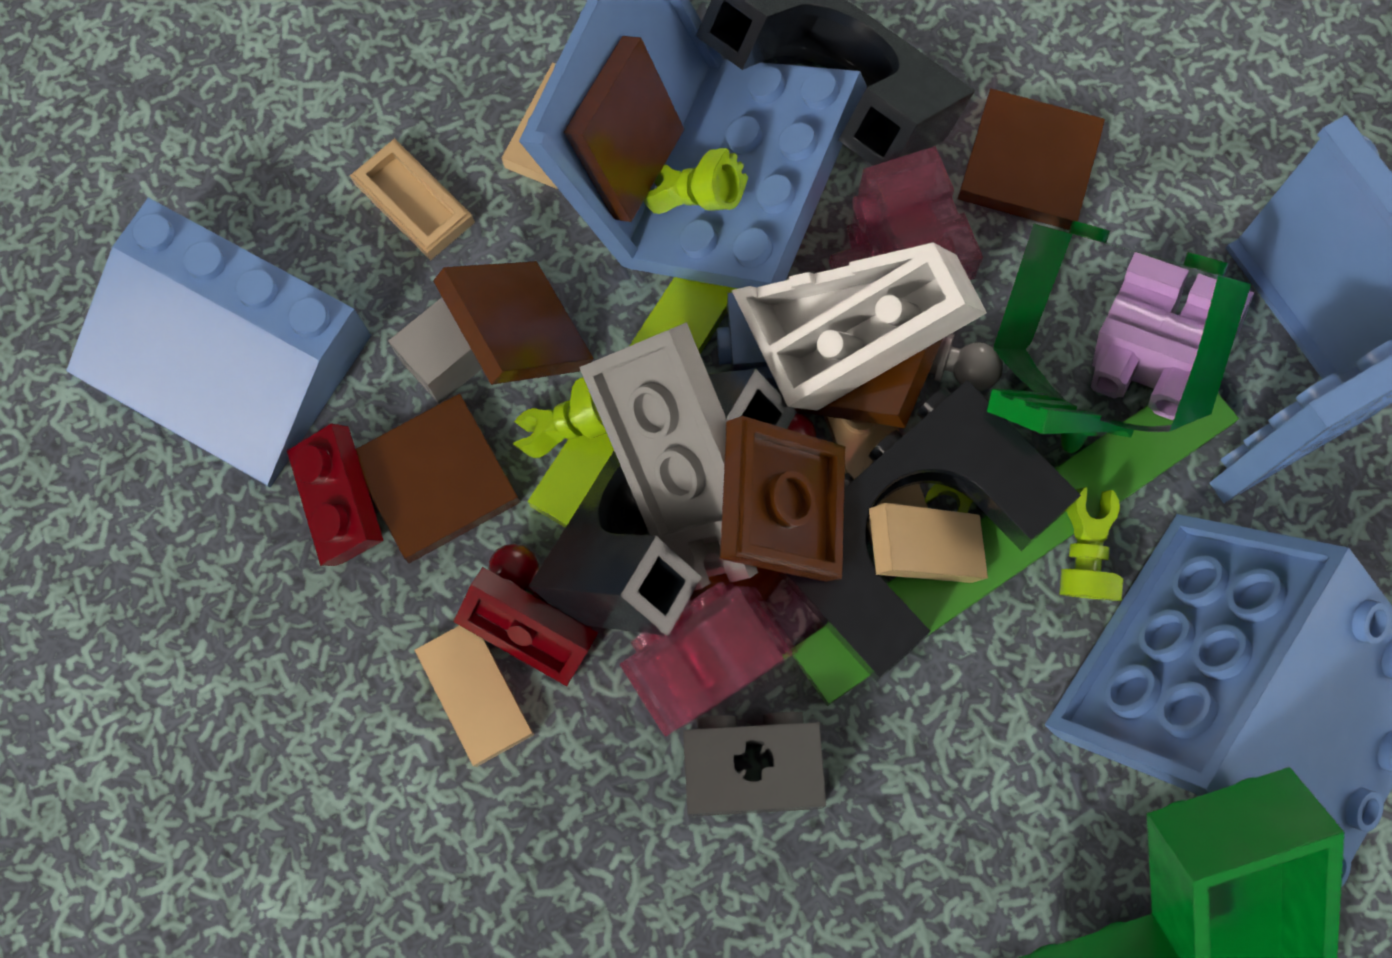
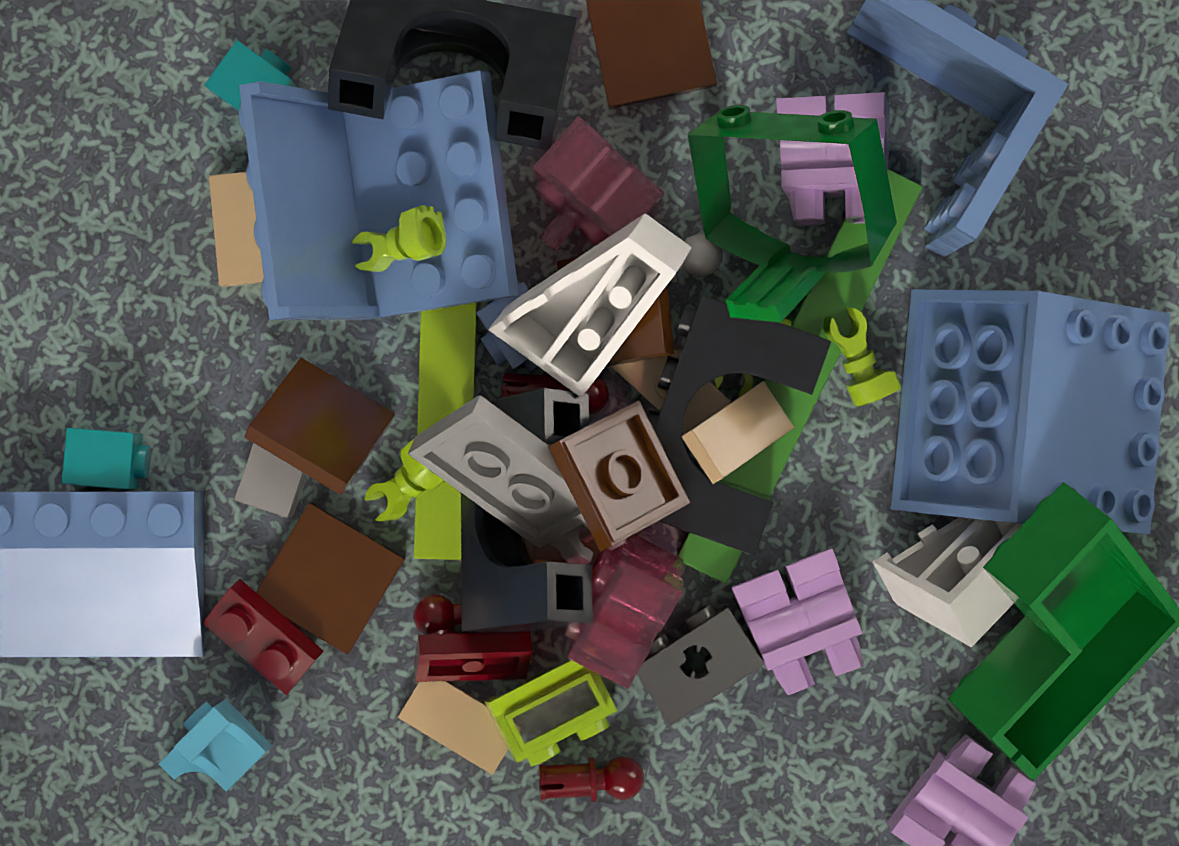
camera: 35 degrees left, 15 degrees up
(220, 569) = (217, 744): none -> medium azure brick
(297, 244) = (105, 458): none -> teal brick
(412, 199) = (165, 359): tan tile -> none
(573, 725) = (551, 709): none -> lime window
(602, 847) = (619, 778): none -> dark red pin
(625, 129) = (326, 236): reddish brown tile -> none
(886, 792) = (797, 626): none -> lavender hips
(1083, 828) = (946, 579): none -> white wedge

